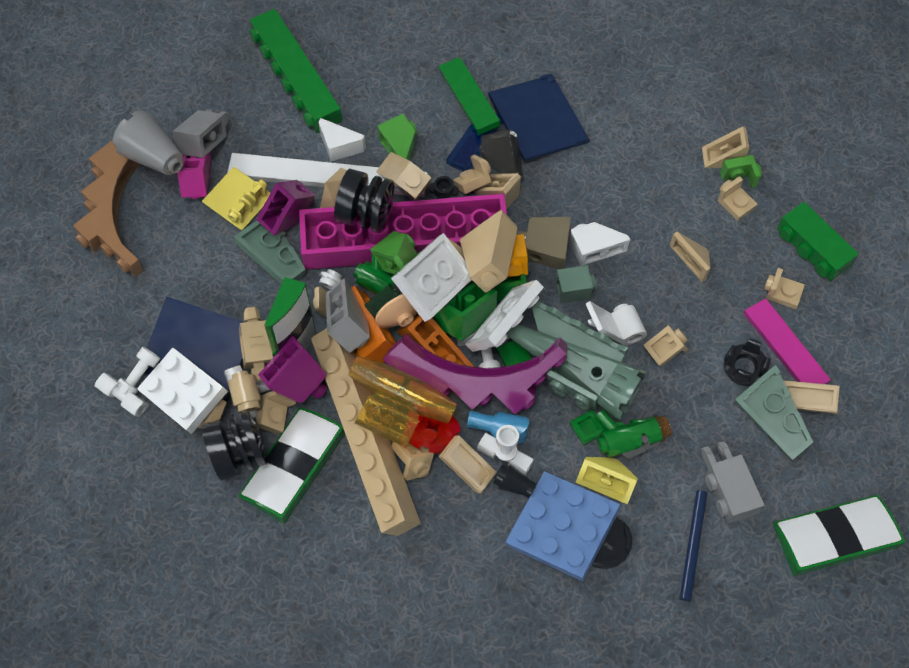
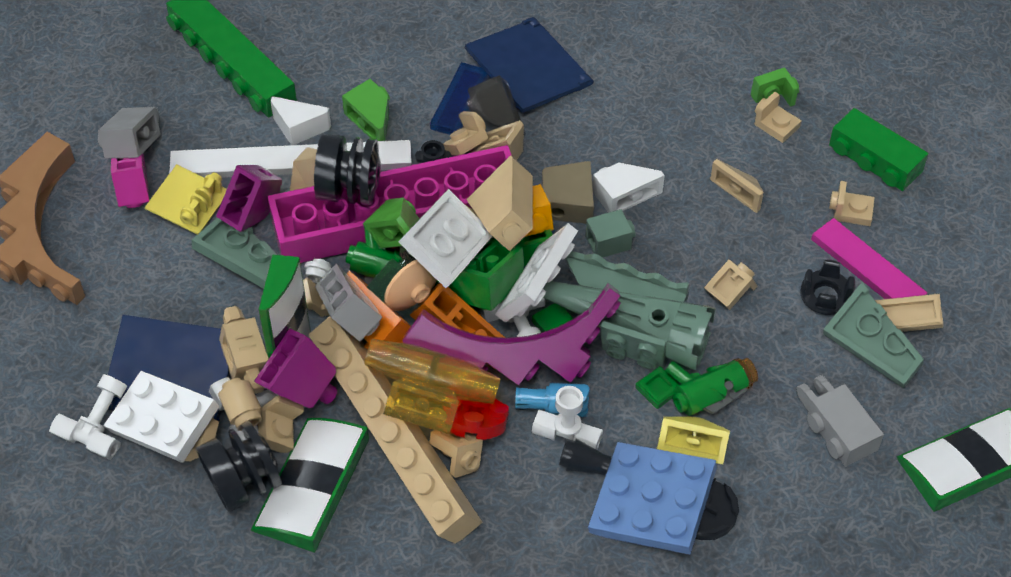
camera: 10 degrees left, 10 degrees down
(147, 144) = (70, 147): light grey cone -> none
(406, 176) = (395, 140): tan slope -> none
(467, 464) = (525, 446): tan tile -> none
(469, 96) = (443, 52): green tile -> none
(620, 325) = (674, 264): white door -> none
(693, 546) = (810, 497): dark blue bar -> none
(727, 147) = (756, 62): tan slope -> none

